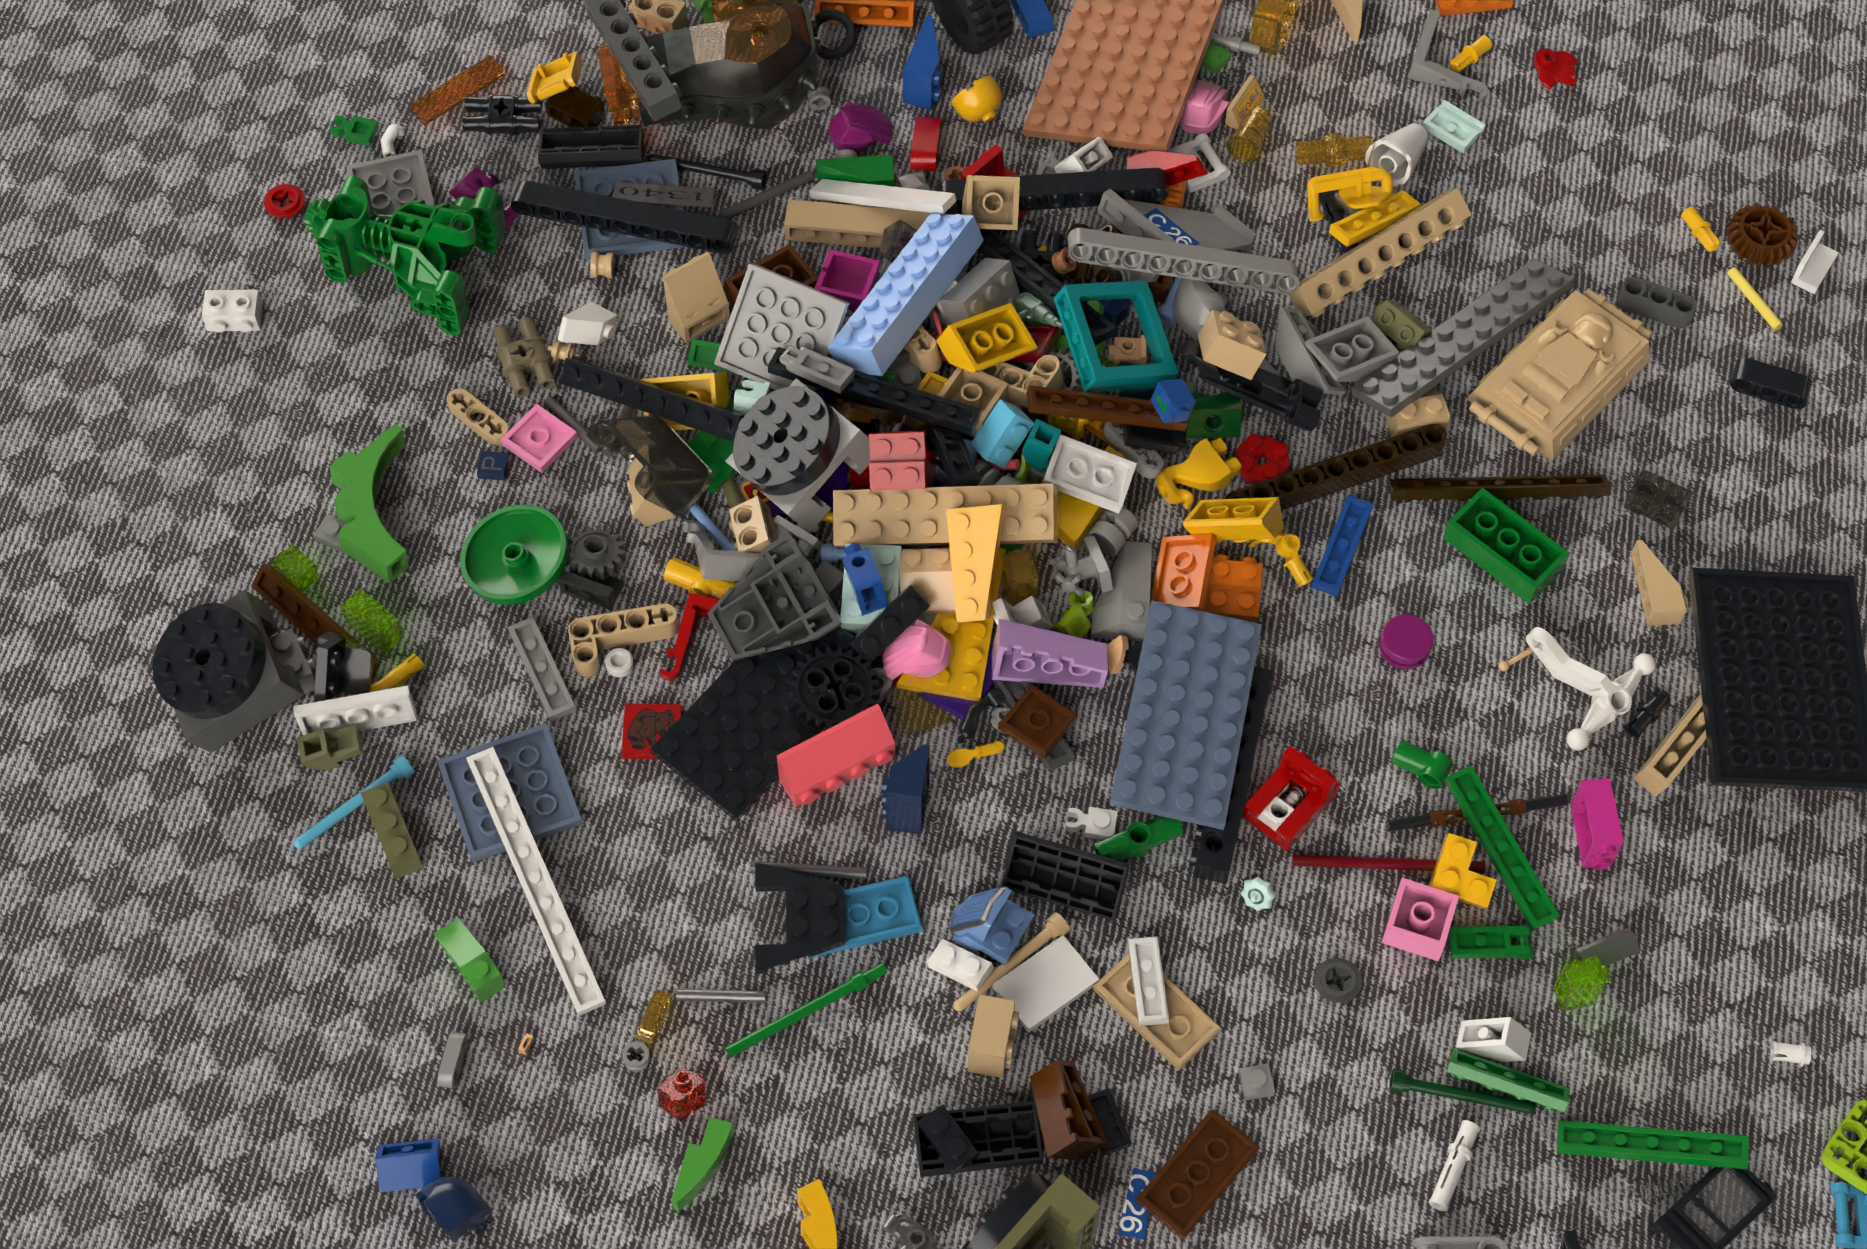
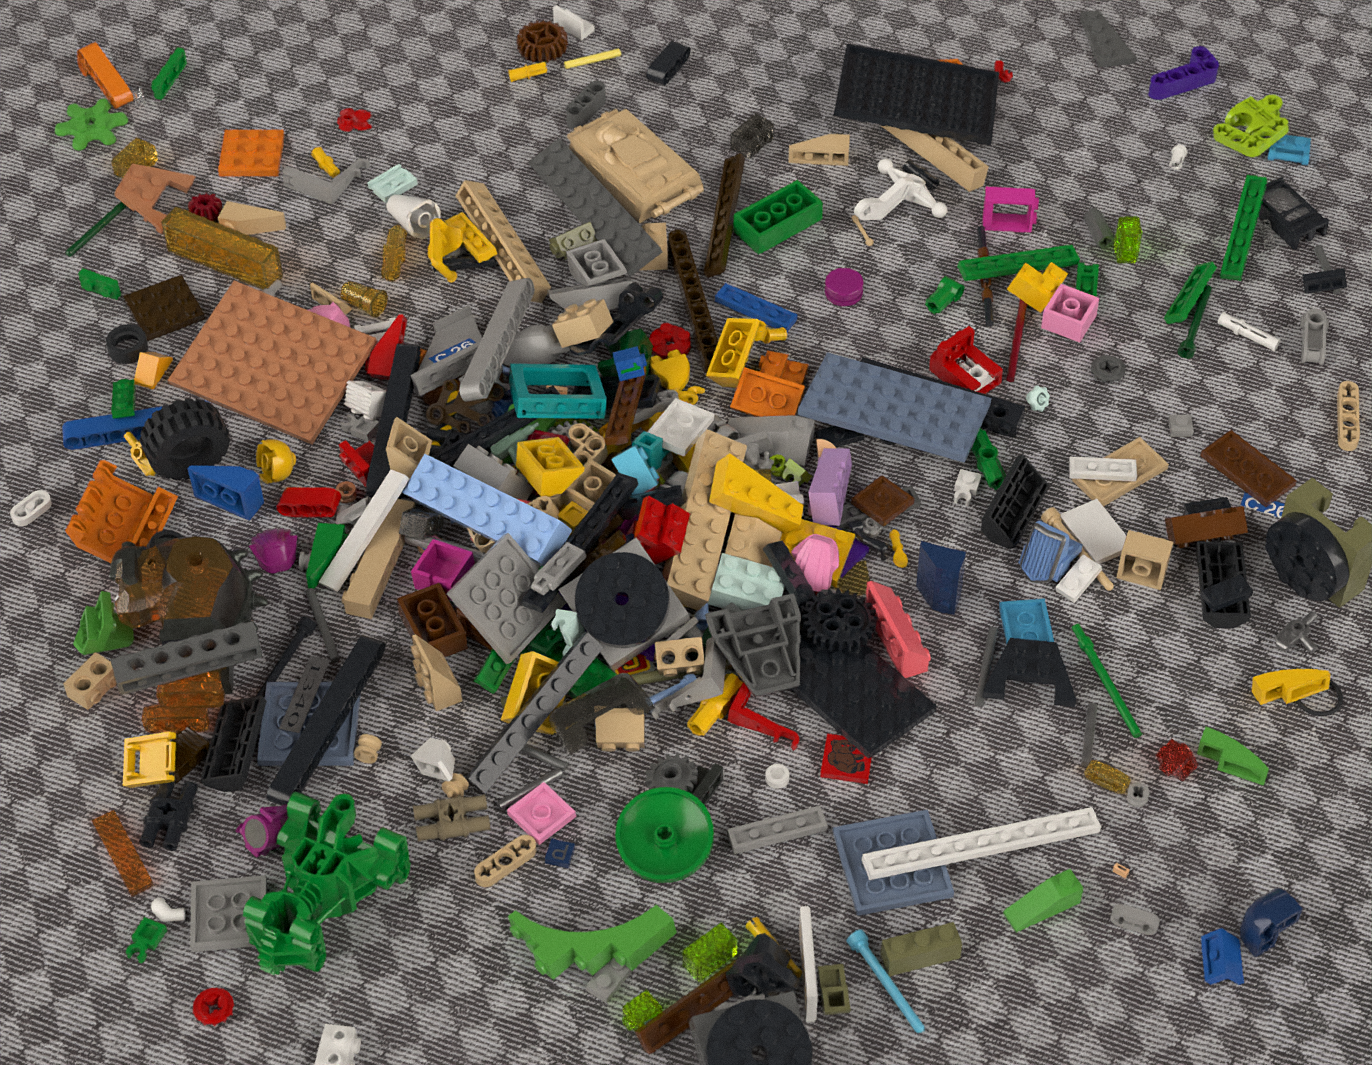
camera: 80 degrees left, 10 degrees down
(623, 635) = (750, 765): tan beam -> none
(864, 579) = (756, 571): blue torso -> none
(1062, 262) = (461, 425): nougat bush -> none
(1494, 1039) = (1159, 295): white slope -> none

